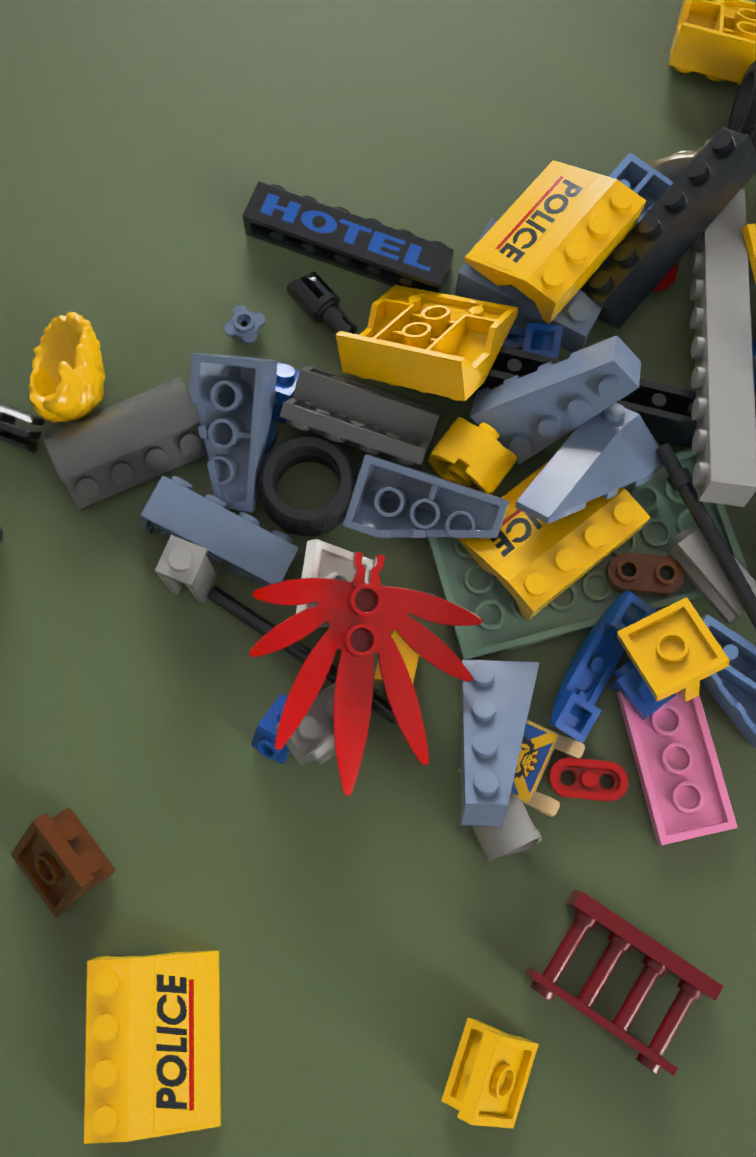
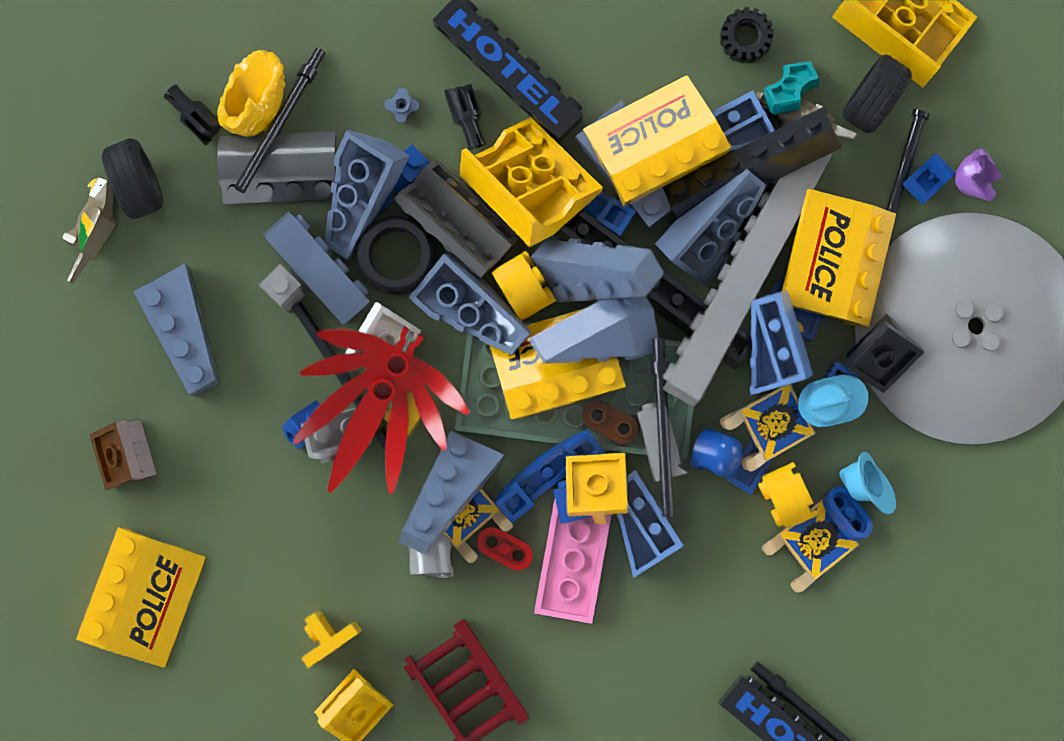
camera: 25 degrees right, 10 degrees up
(71, 666) = (177, 320): none -> sand blue wedge
(121, 332) = (305, 76): none -> black bar
(425, 994) = (320, 629): none -> yellow bracket
(591, 100) = (753, 19): none -> black tyre
(655, 306) = (705, 233): none -> sand blue wedge
(665, 142) = (787, 92): none -> teal tile

